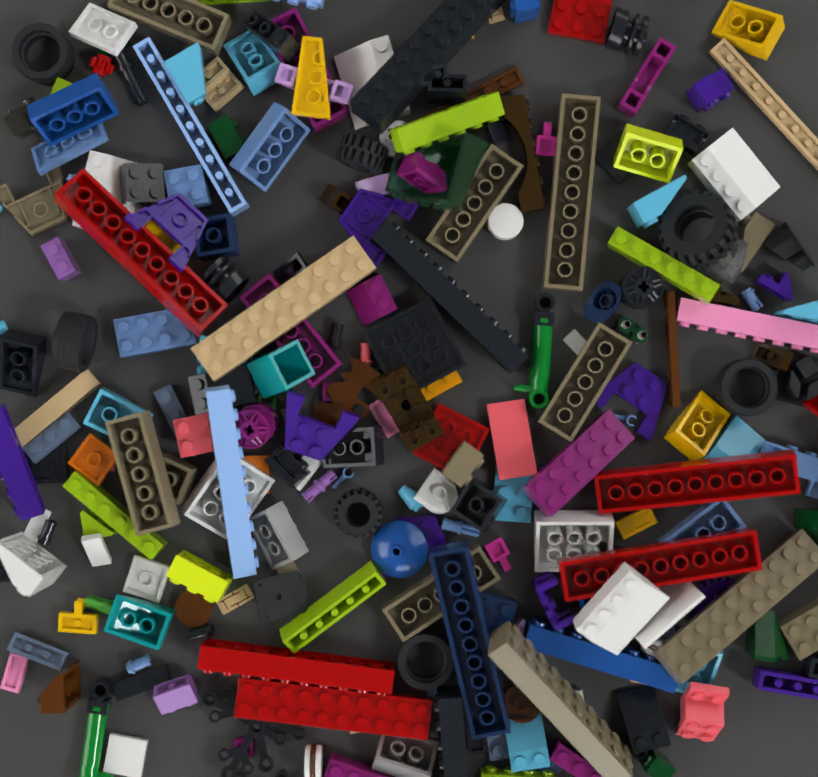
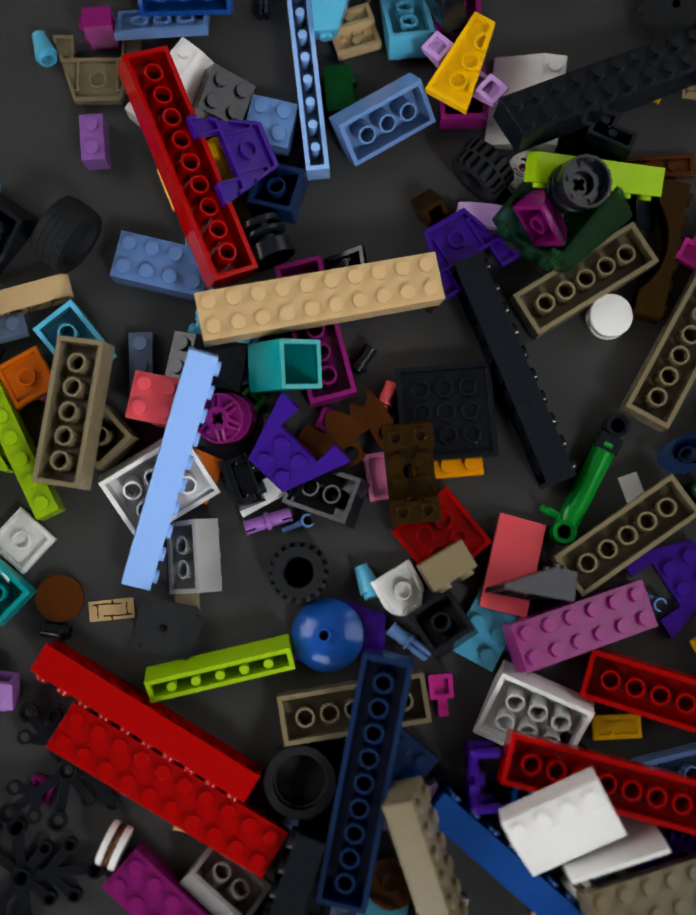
camera: 25 degrees right, 5 degrees down
(23, 171) = (98, 27): none -> magenta brick
(199, 576) = (82, 563): neon yellow brick -> none
(372, 300) = (421, 338): magenta slope -> none
(447, 138) = (591, 183): none -> black wheel
(542, 444) = (546, 586): none -> black slope

